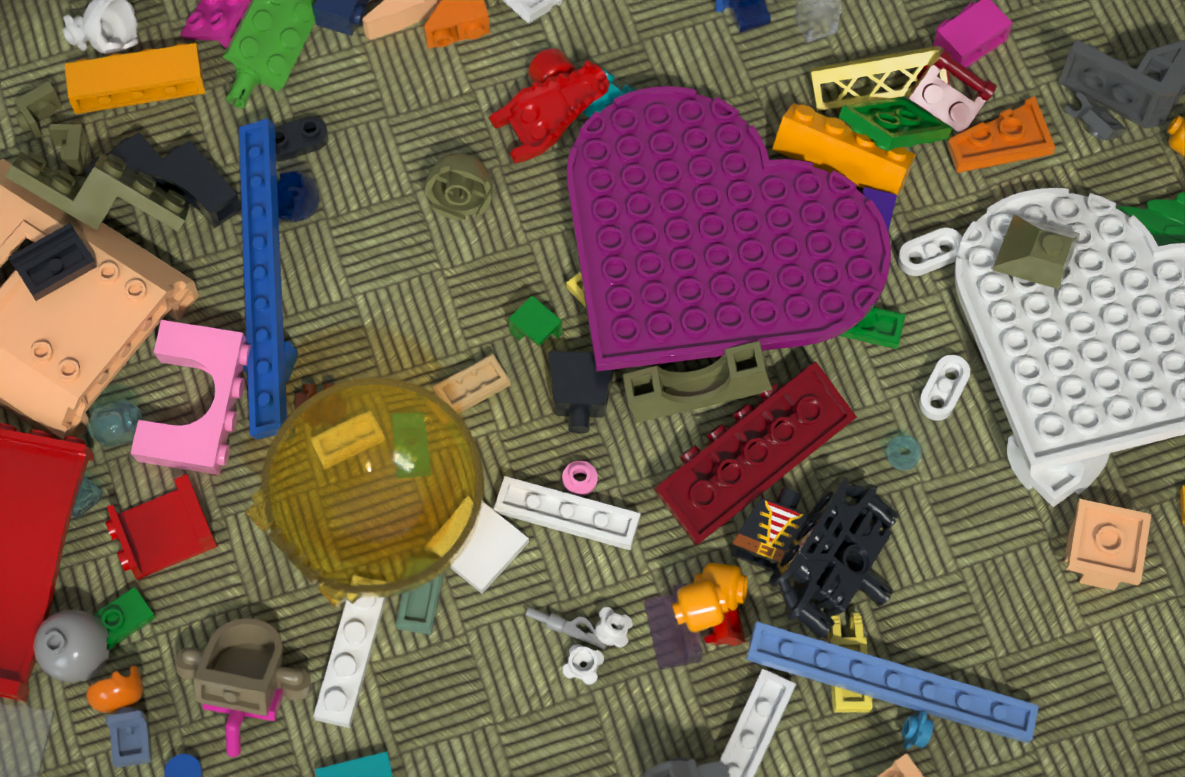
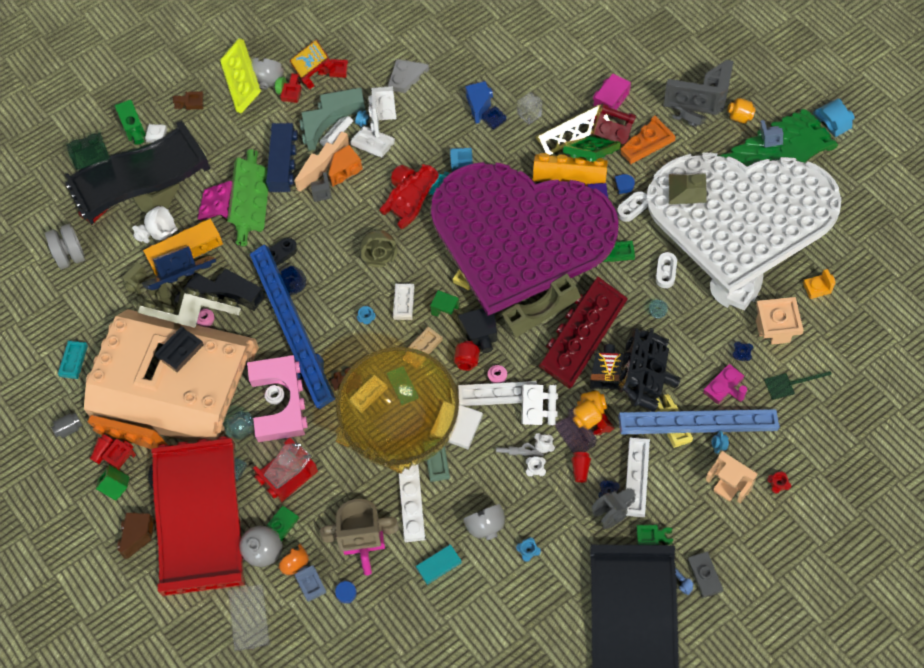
camera: 15 degrees left, 5 degrees down
(107, 108) = (175, 265): none -> dark blue bracket
(130, 222) = (207, 321): none -> bright pink plate
(163, 520) = (287, 464): none -> clear slope
(189, 380) = (274, 390): none -> white plate
(395, 290) = (365, 311): none -> dark azure plate
(405, 47) = (321, 189): none -> dark grey panel
(458, 735) = (486, 522): none -> light grey cylinder
(469, 295) = (403, 302): none -> white plate
(538, 428) = (466, 355): none -> red head
(618, 552) = (533, 404): none -> white plate
(659, 691) = (581, 465): none -> red cone
(662, 69) = (460, 158): none -> dark azure panel
(690, 739) = (605, 485): none -> clear blue plate
(933, 204) = (624, 183): none -> blue tile
(967, 629) = (725, 384): none -> dark pink plate
(1022, 589) = (742, 356): none -> clear blue plate
(1066, 665) = (781, 386): none -> clear green piece

